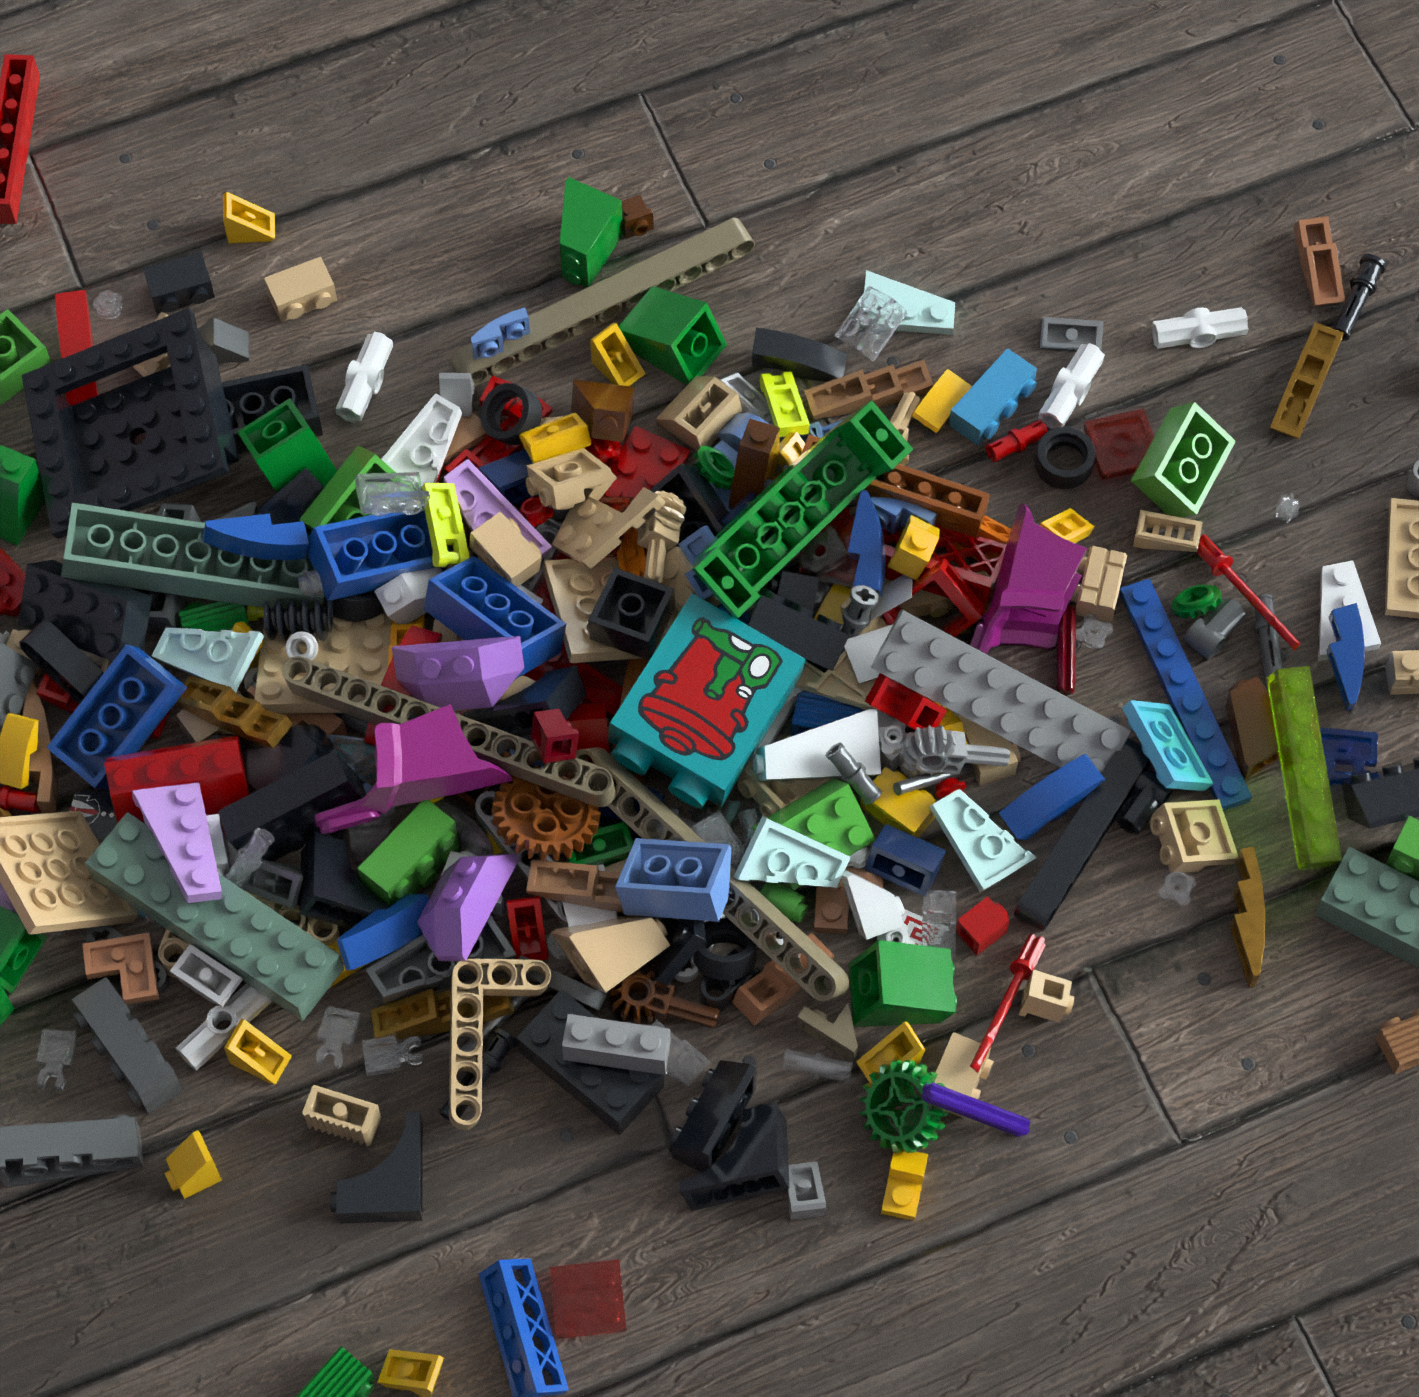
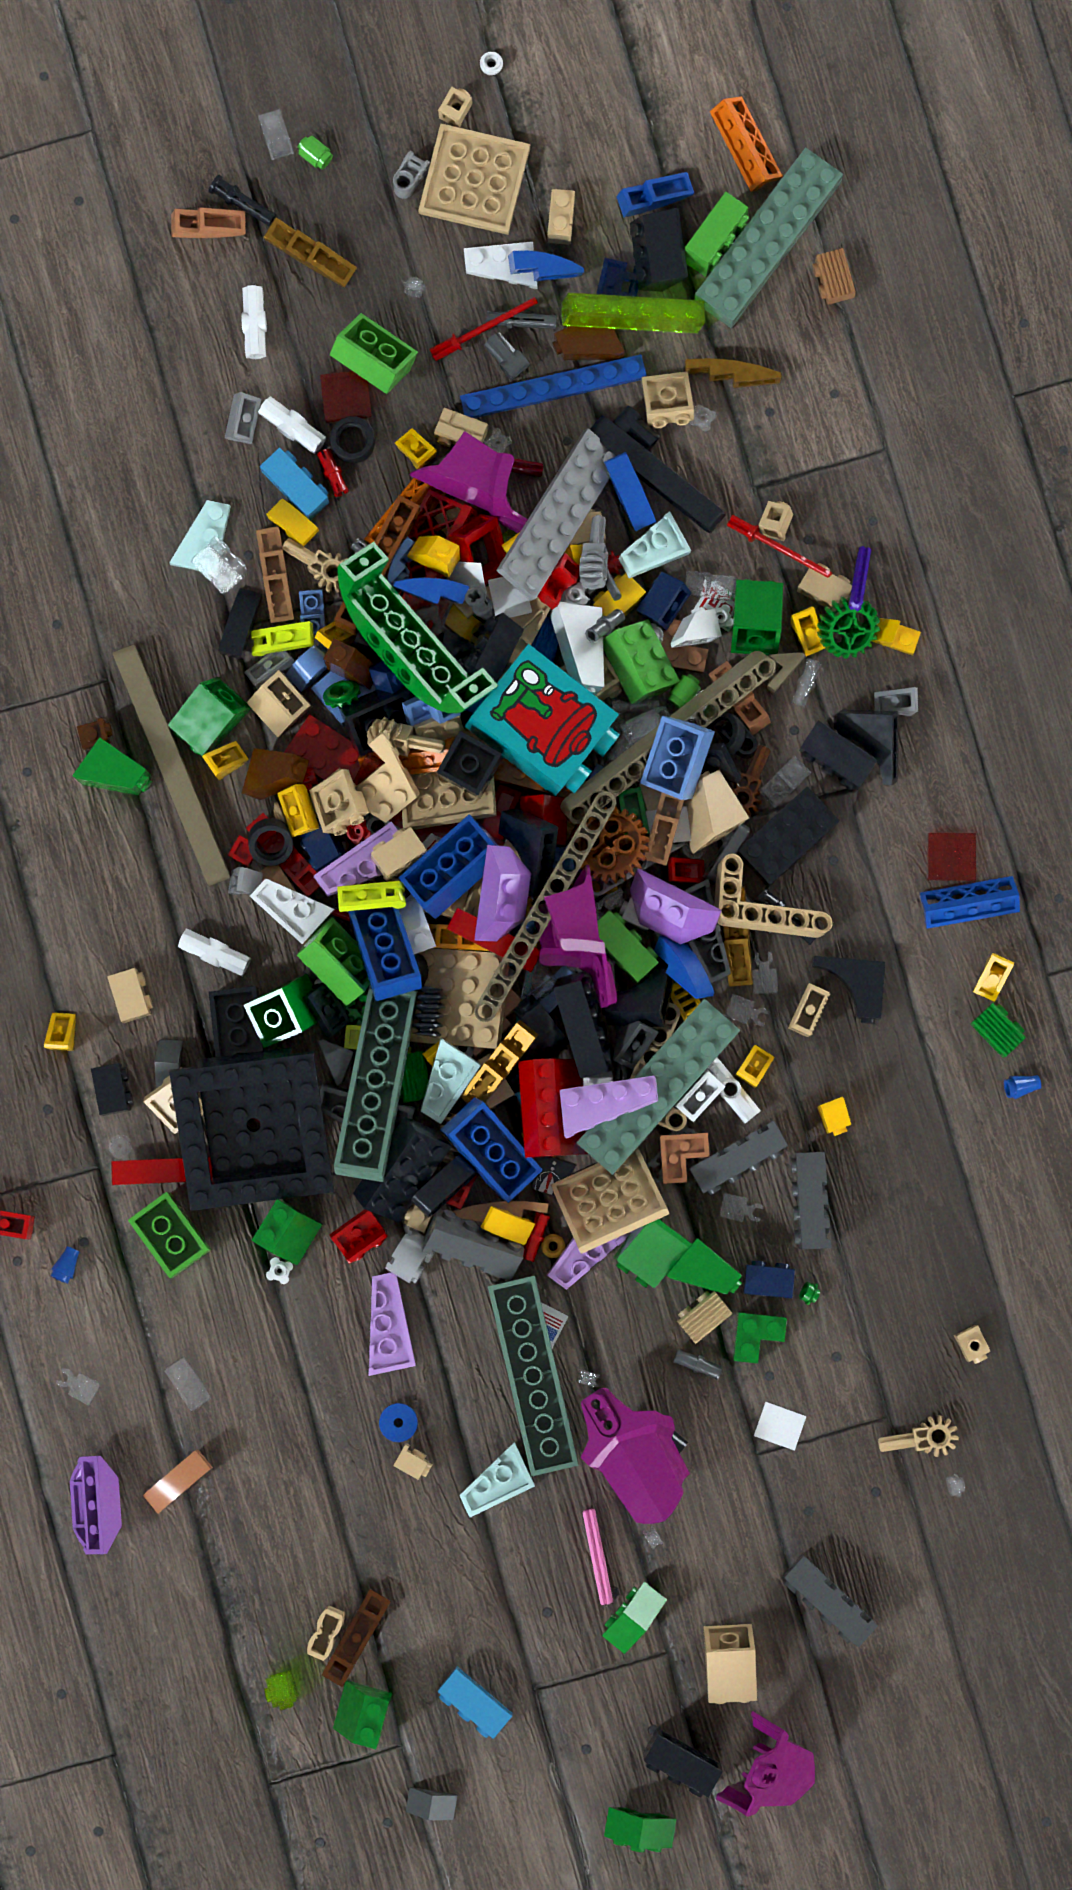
camera: 75 degrees left, 20 degrees up
(249, 858) = (620, 1059): clear pin -> none
(257, 537) = (371, 1031): blue slope -> none
(294, 641) = (459, 1013): white plate -> none
(310, 584) = (409, 998): clear plate -> none
(391, 493) = (344, 932): clear bracket -> none
(490, 338) = (204, 848): medium blue slope -> none
(553, 736) = (570, 828): dark red brick -> none
(616, 1044) = (791, 813): light grey brick -> none
(790, 857) = (665, 677): light aqua wing -> none
(982, 925) = (717, 555): red brick -> none
(1161, 521) = (425, 397): tan slope -> none
(1167, 746) = (600, 405): medium azure plate -> none
(1196, 601) = (480, 357): green gear -> none

